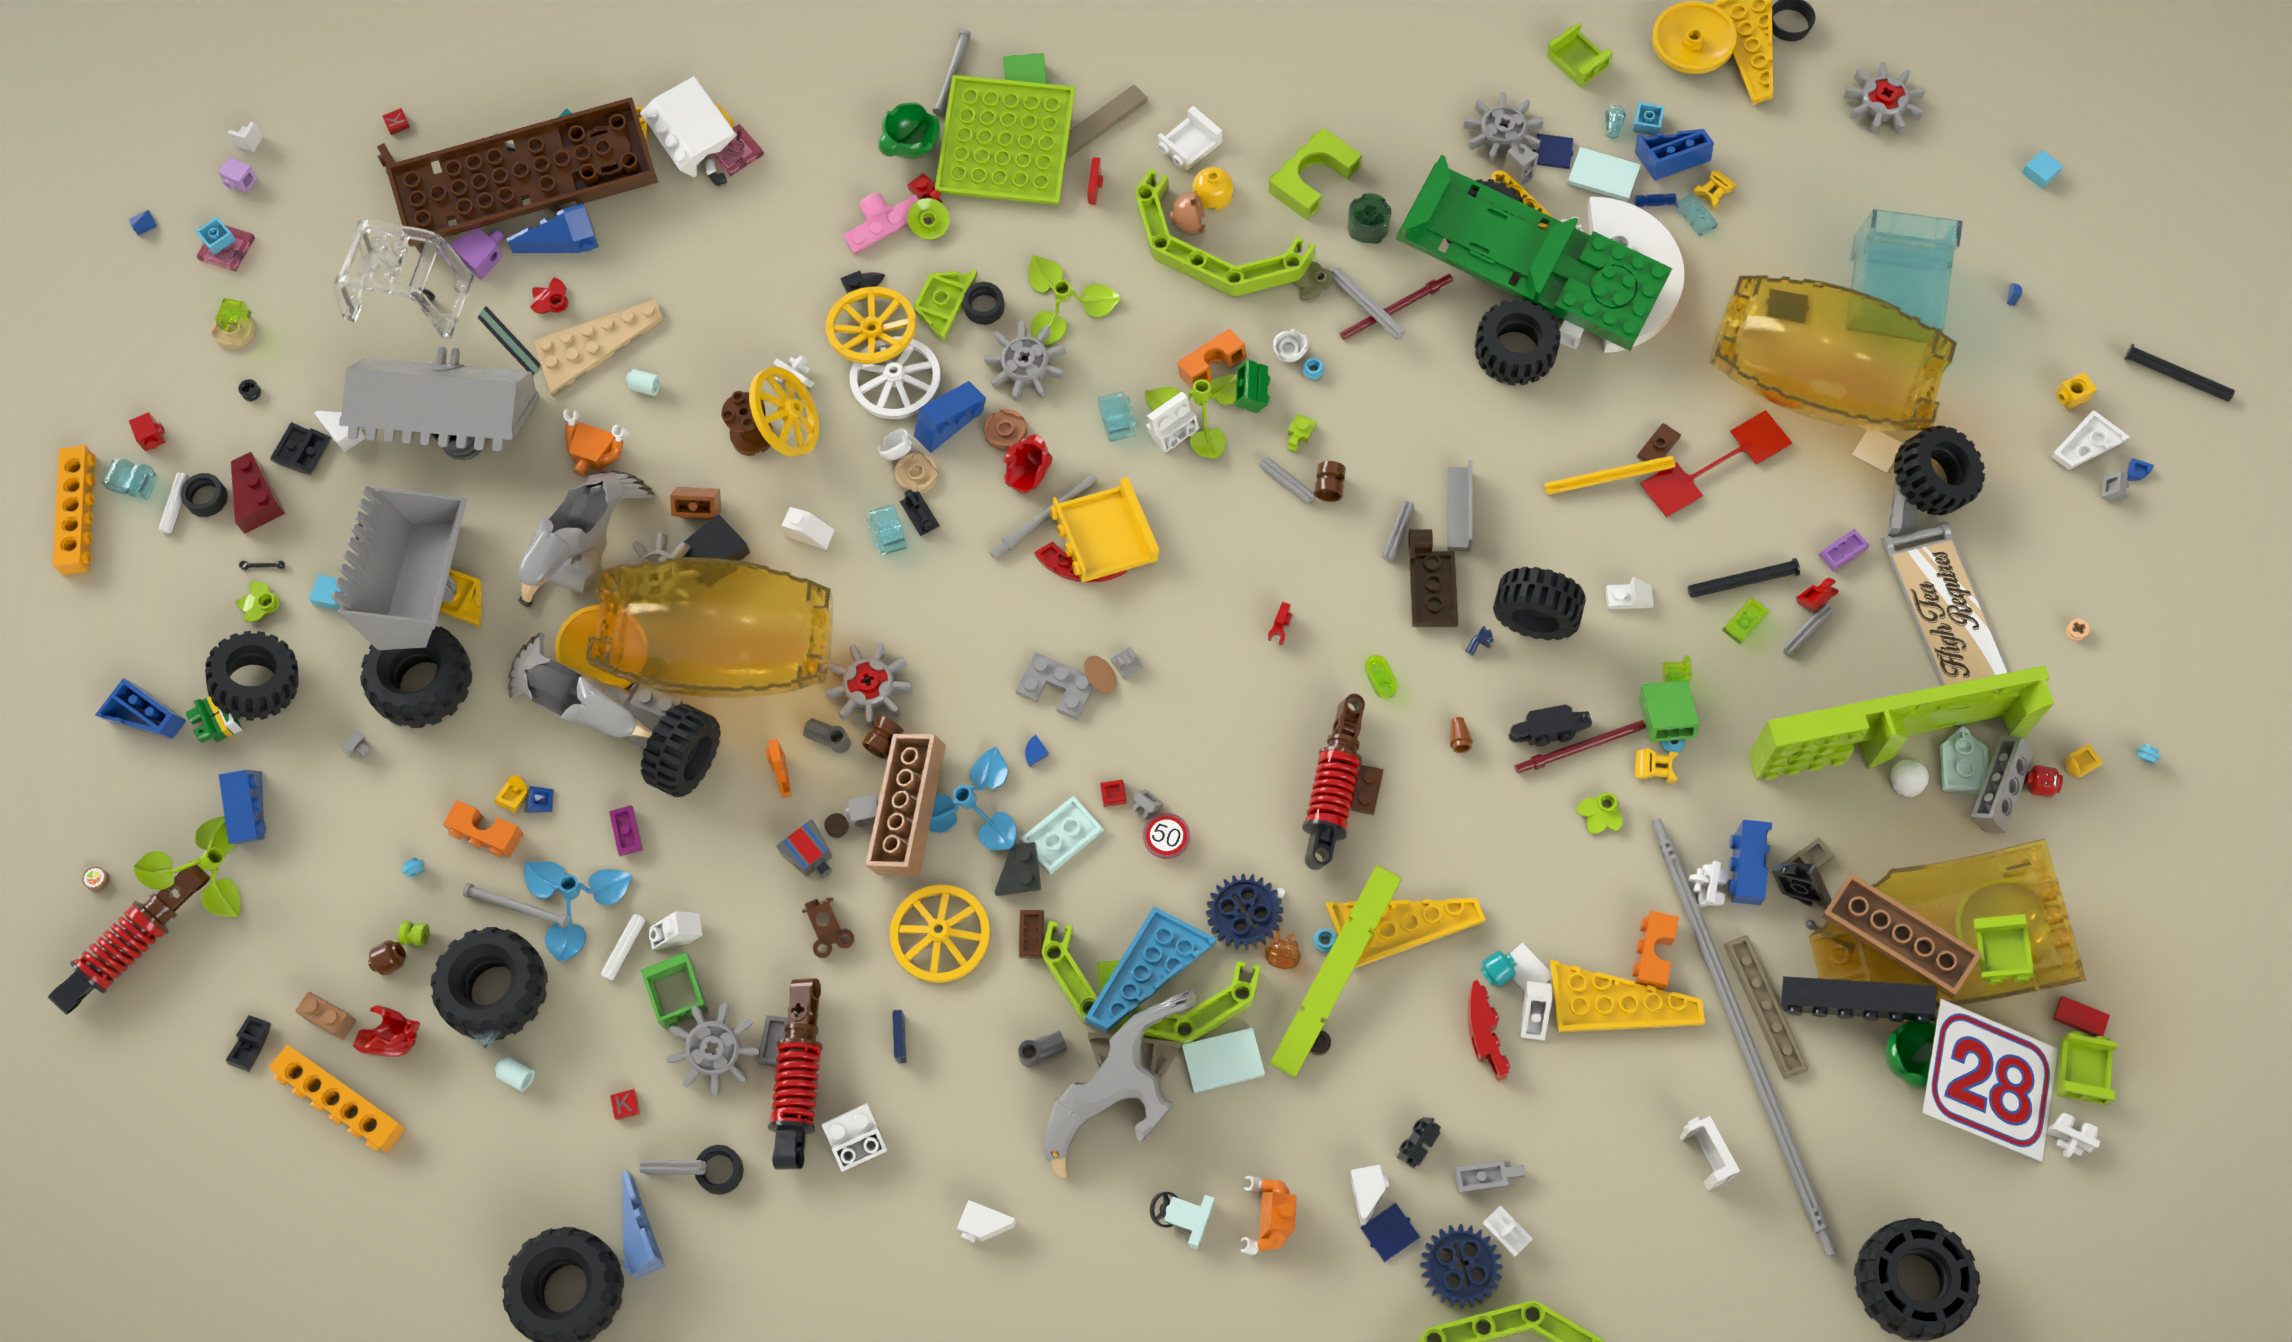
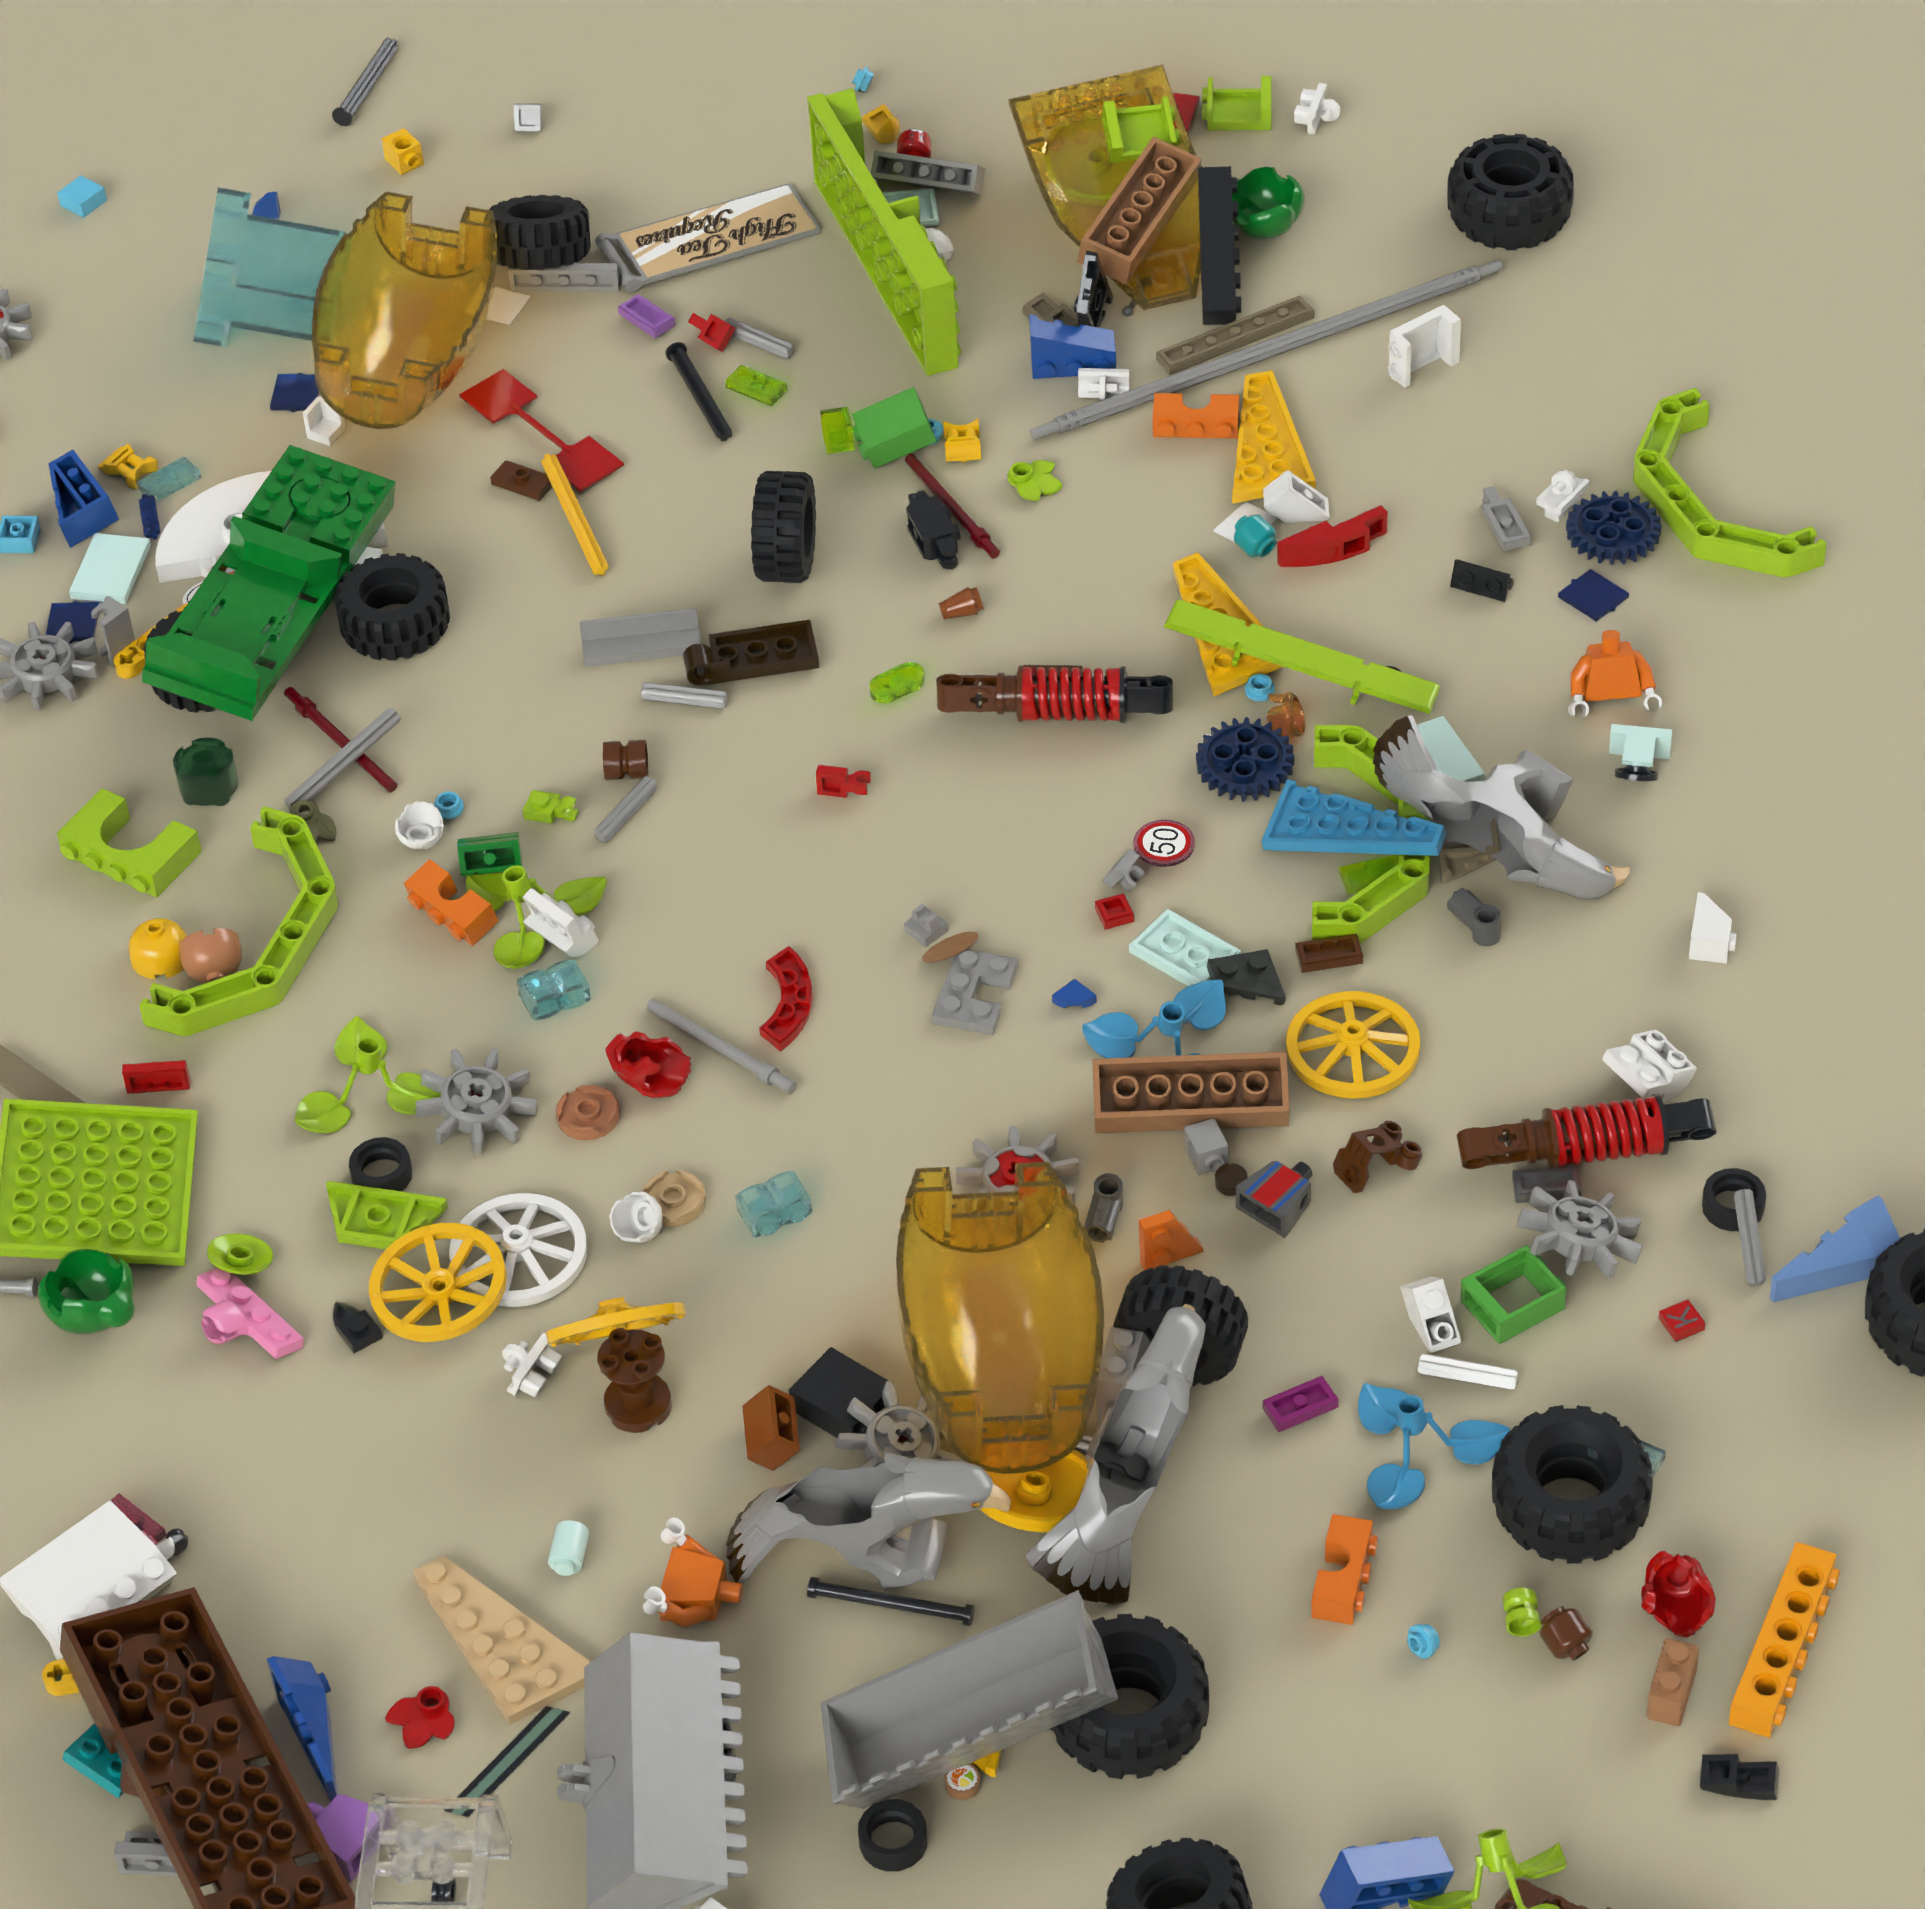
camera: 100 degrees left, 20 degrees down
(323, 591) = (1003, 1879): medium azure piece -> none
(355, 744) = (1251, 1765): light grey tile -> none
(512, 794) = (1279, 1548): yellow plate -> none
(514, 1073) = (1683, 1442): light aqua brick -> none
(539, 800) = (1280, 1520): blue slope -> none
(562, 921) = (1437, 1565): light grey bar -> none
(807, 528) = (787, 1300): white slope -> none
(880, 739) = (1096, 1144): reddish brown wheel -> none
(899, 1036) = (1503, 1052): dark blue tile -> none
(919, 512) = (748, 1172): black hinge -> none
(924, 188) = (180, 1279): red plate -> none
(948, 415) = (581, 1163): blue wedge -> none
(1105, 532) = (736, 966): yellow panel -> none
(1190, 140) = (73, 985): white panel -> none
(1368, 1190) = (1557, 608): white slope -> none
(1484, 637) = (823, 599): dark blue plate -> none
(1614, 120) = (25, 563): clear light blue cone -> none
(1629, 596) = (739, 485): white slope -> none
(1990, 1080) = (1279, 152): sticker -> none
(2076, 636) = (721, 136): light nougat bush -> none
(2089, 440) = (466, 140): white wing -> none
(2138, 469) = (499, 107): blue tile -> none

